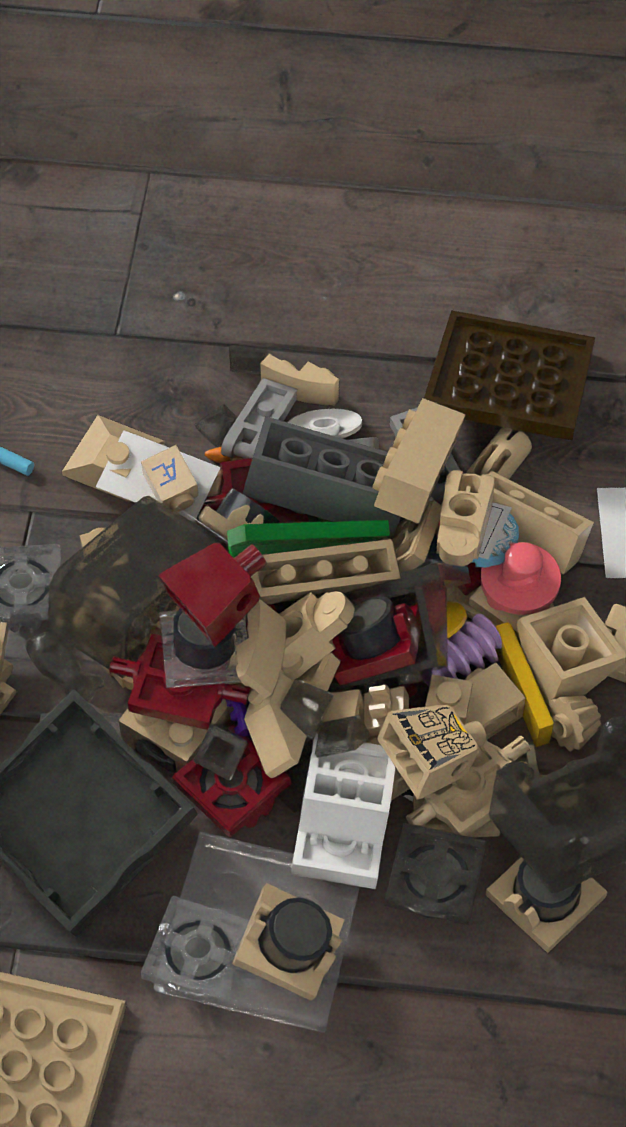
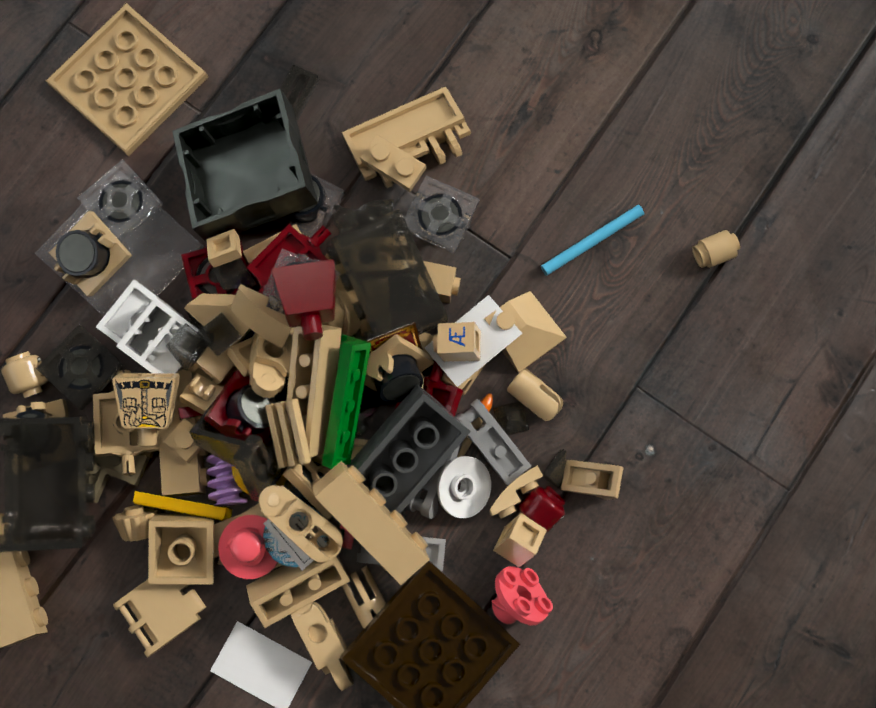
camera: 120 degrees right, 20 degrees up
(182, 408) = (535, 395): none -> tan arm
(196, 770) = (224, 248): none -> tan plate
(243, 312) = (592, 479): none -> tan slope
(303, 345) = (543, 507): none -> dark red head
(348, 348) = (520, 540): none -> tan brick
(401, 551) = (284, 434): none -> tan tile
(407, 326) = (520, 597): none -> coral plate
(484, 946) = (22, 375): none -> tan head
(572, 470) = (323, 642): none -> tan piece

